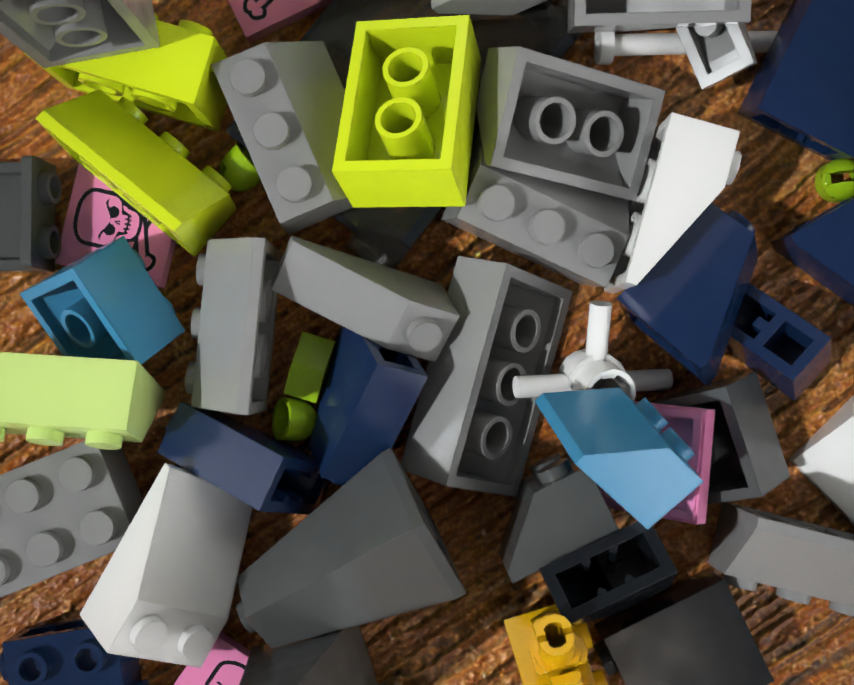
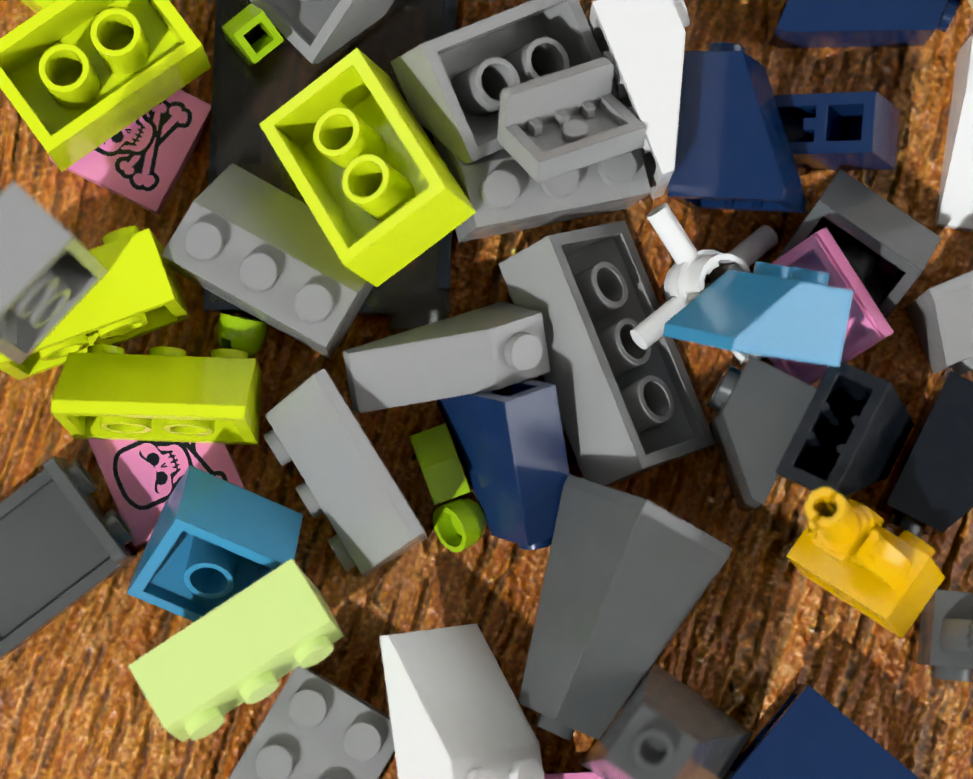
camera: 30 degrees left, 5 degrees down
(244, 461) = (444, 589): dark blue slope -> none
(584, 187) = (566, 121): none -> light grey bracket

